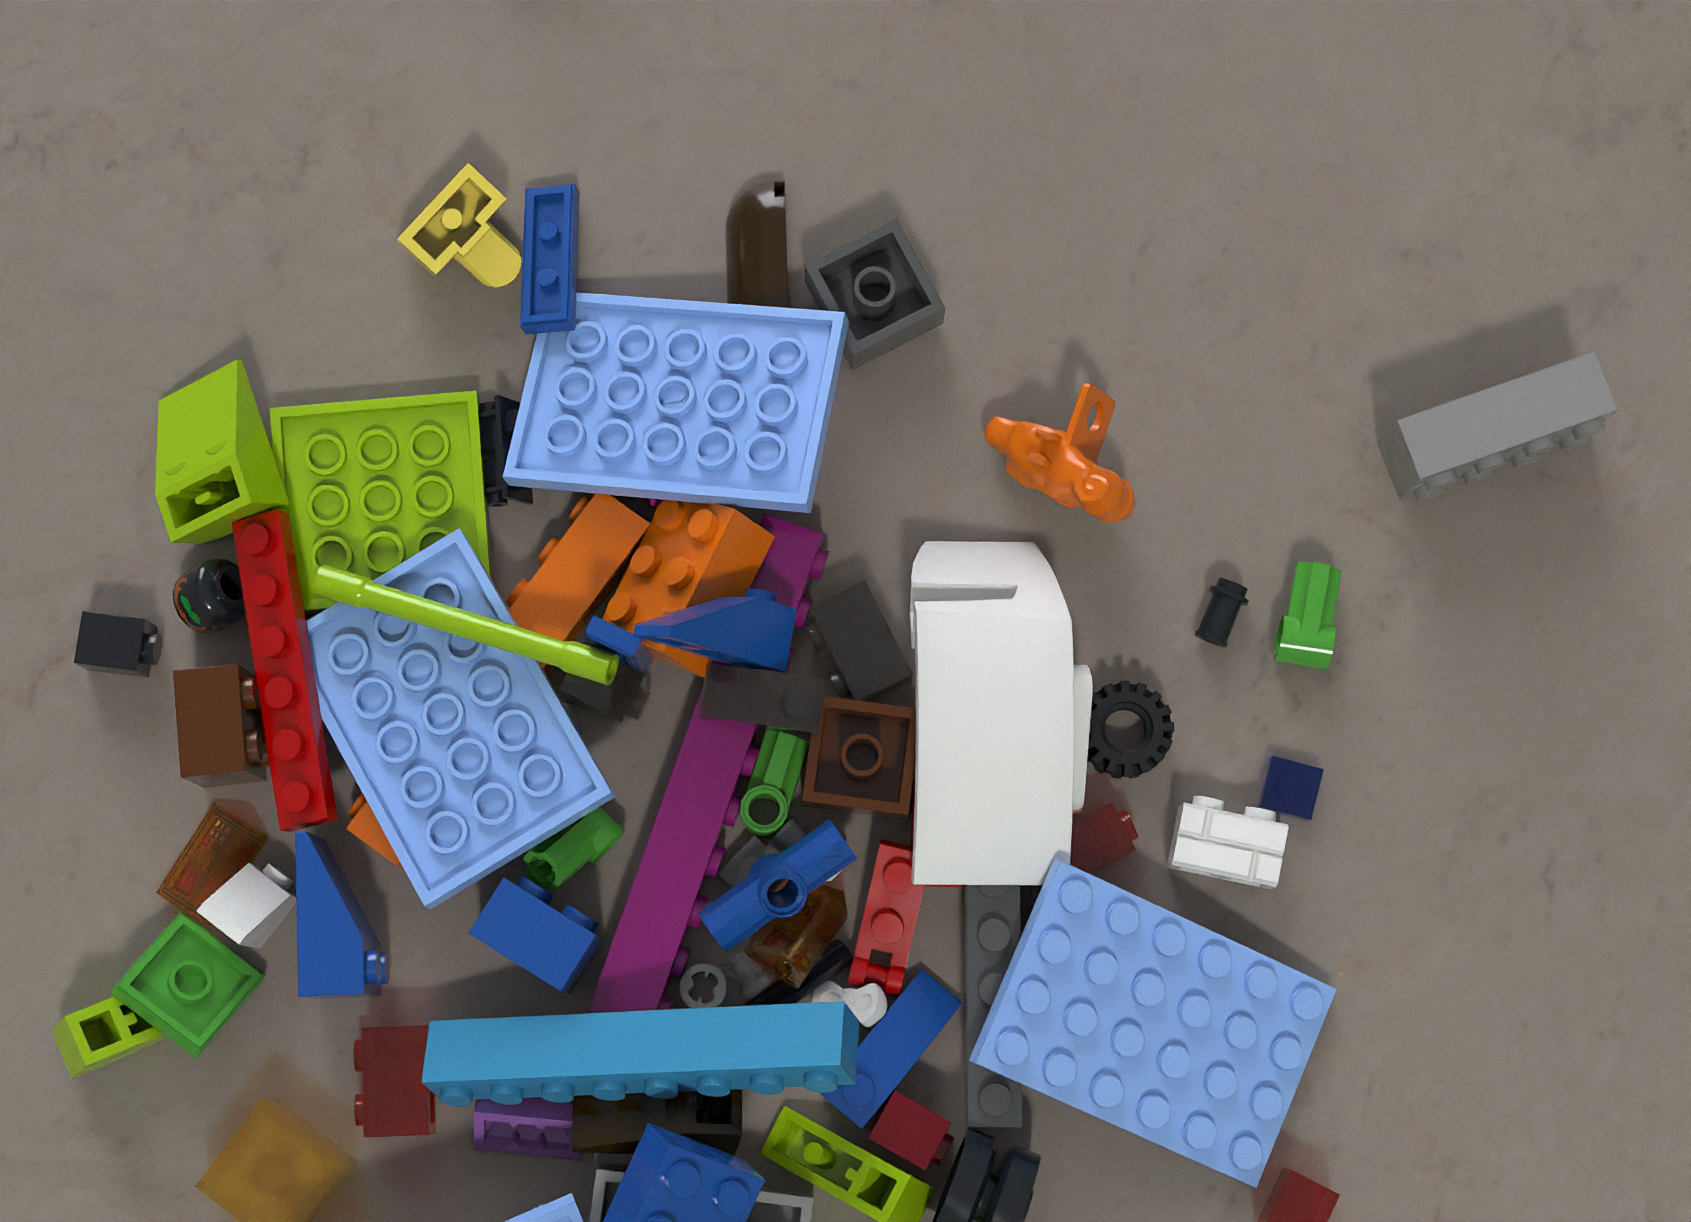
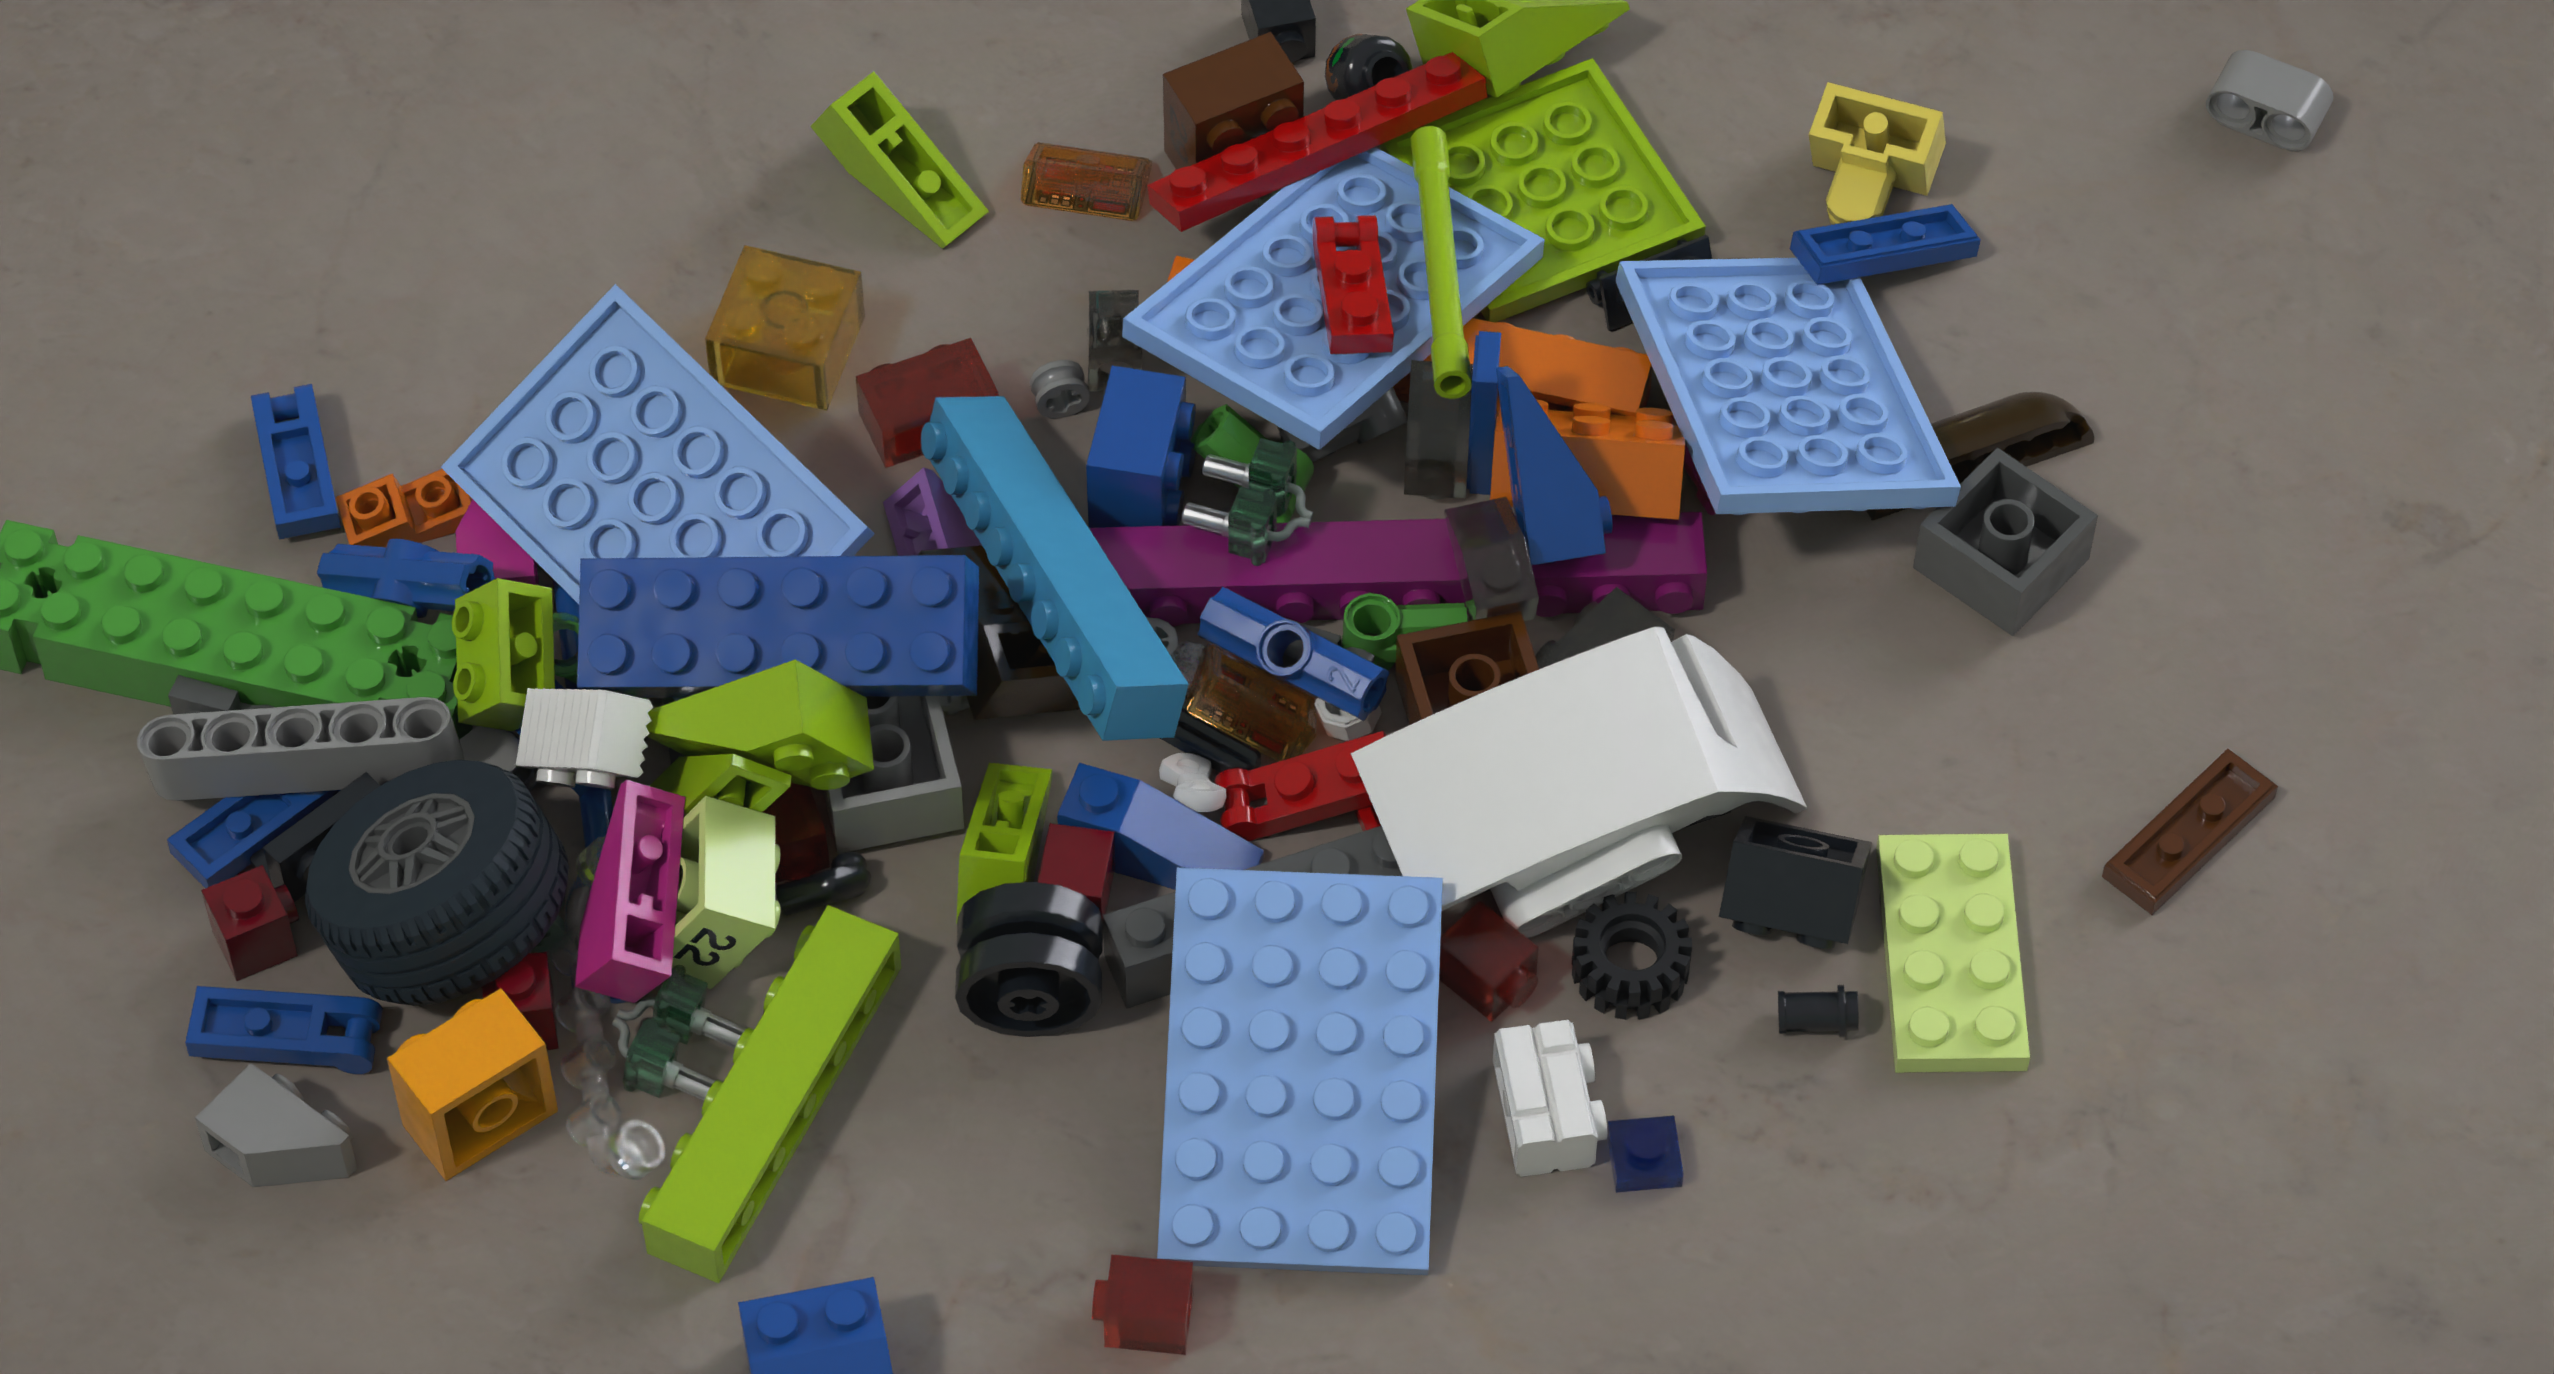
camera: 70 degrees right, 25 degrees down
(188, 984) = (951, 185): bright green tile -> none
(250, 904) = (1056, 206): white slope -> none
(334, 939) = (1043, 273): blue slope -> none
(403, 910) = (1104, 334): none -> clear smoke leg
(426, 967) = (1060, 389): none -> light grey bush
(464, 706) = (1352, 286): none -> red plate
(652, 874) = (1261, 499): none -> clear green piece
(1065, 462) = (1912, 776): orange piece -> none
(1111, 578) = (1794, 882): none -> black slope
(1161, 273) = (2189, 831): none -> reddish brown tile
(1209, 491) = (1952, 953): none -> yellowish green plate
(1306, 630) = (1840, 1103): bright green piece -> none
(1498, 426) = (2184, 1203): light grey brick -> none

